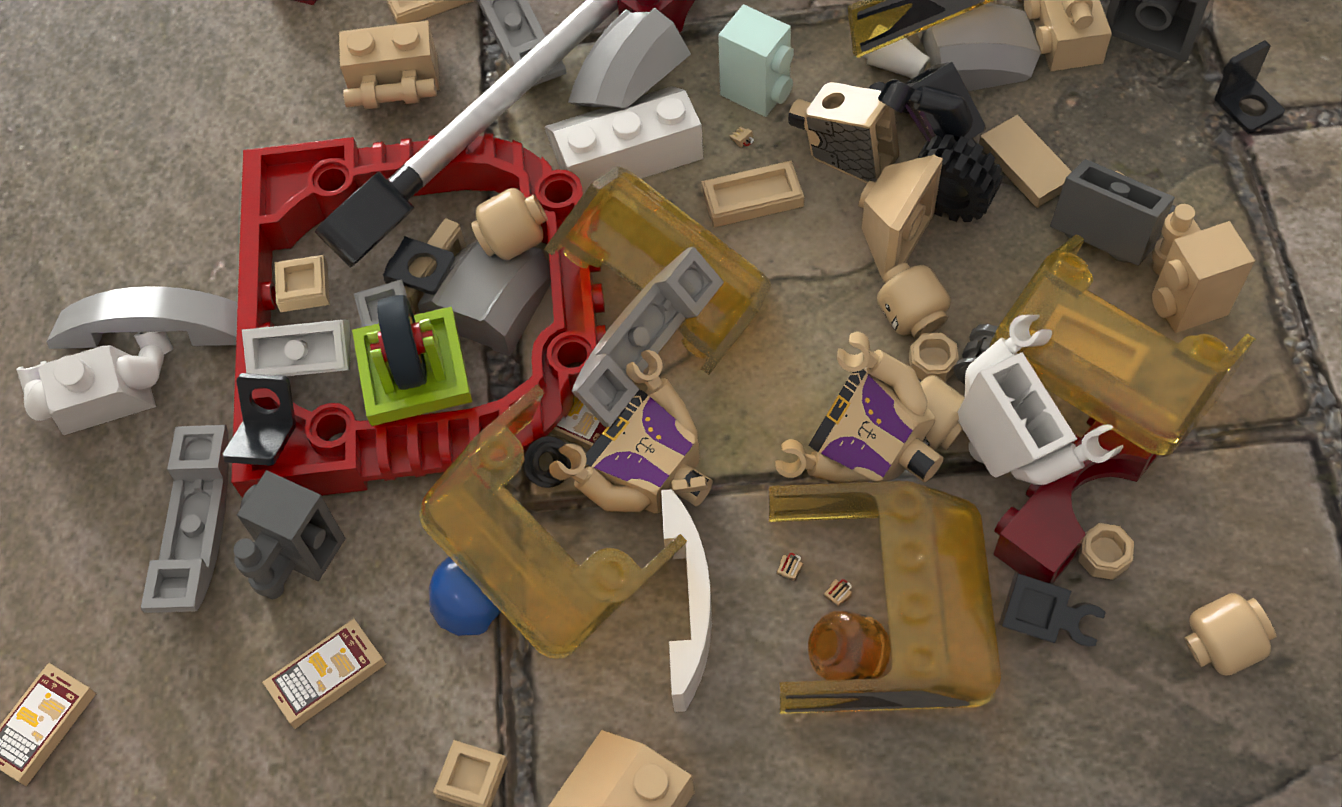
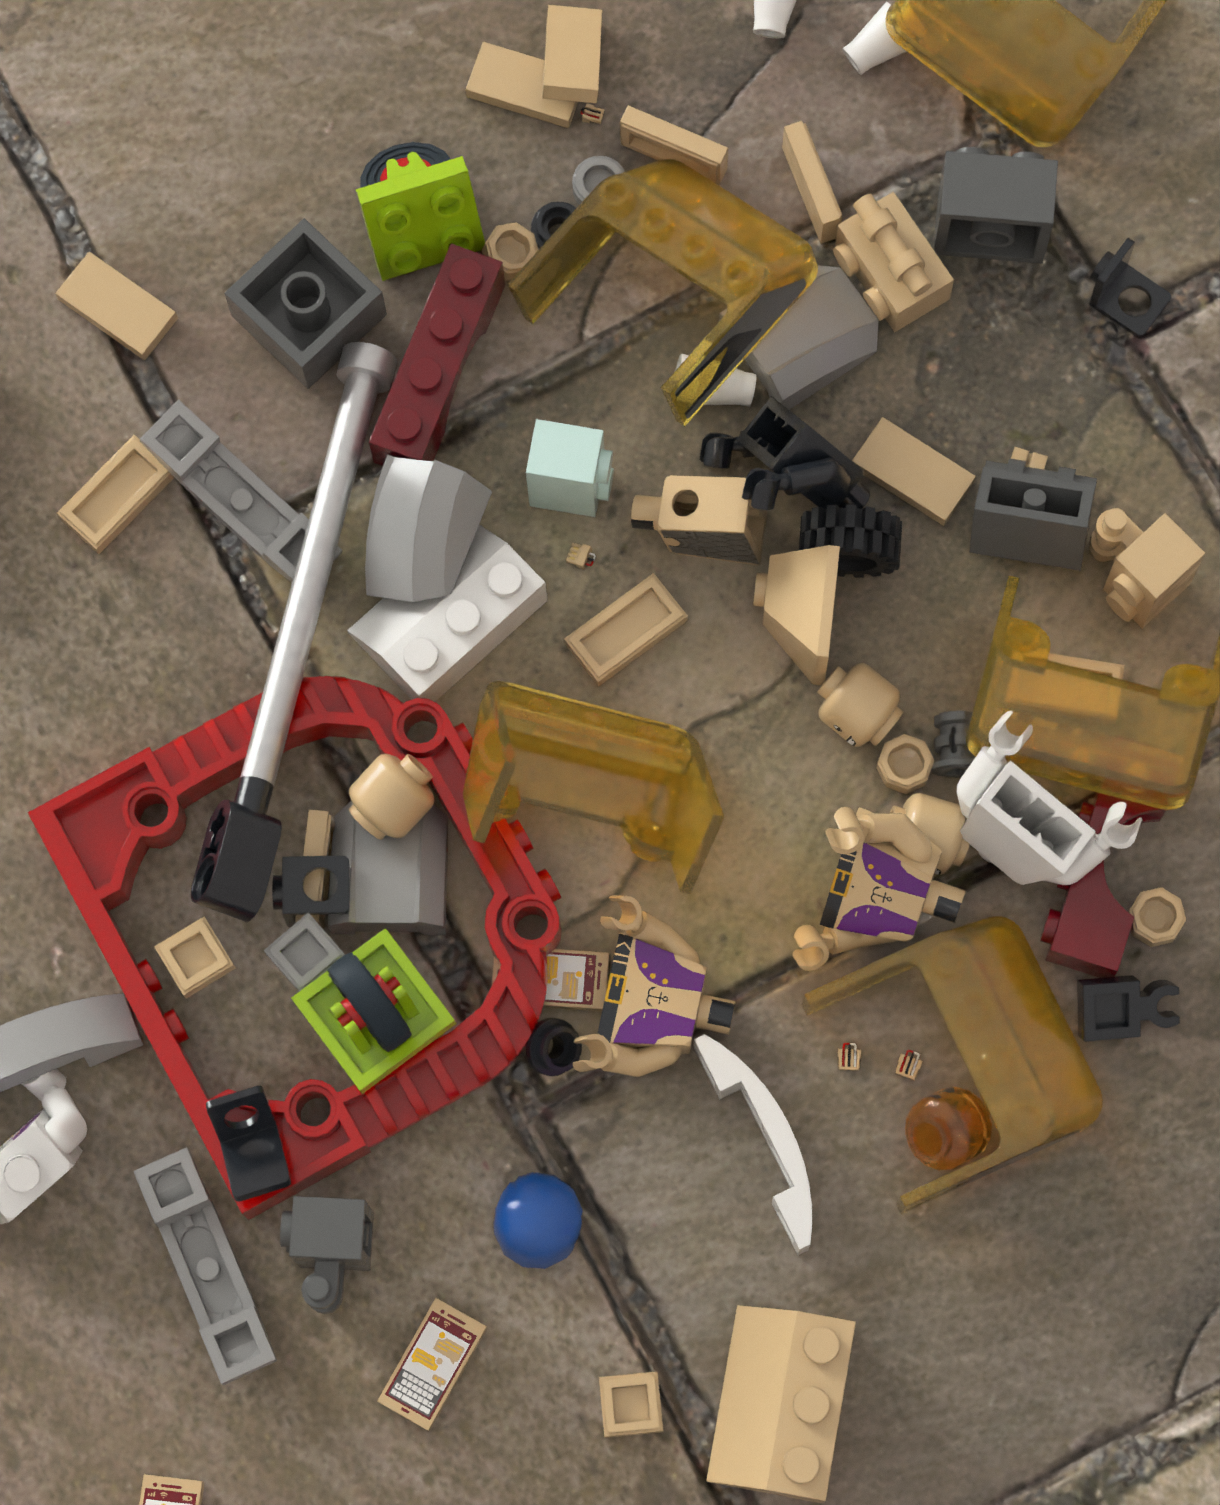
camera: 25 degrees left, 15 degrees up
(298, 348) = (233, 1036): white slope -> none
(388, 64) = (128, 620): tan brick -> none
(512, 554) = (580, 1179): clear yellow windscreen -> none
(645, 324) = (590, 866): light grey slope -> none
(696, 484) = (714, 1024): tan piece -> none

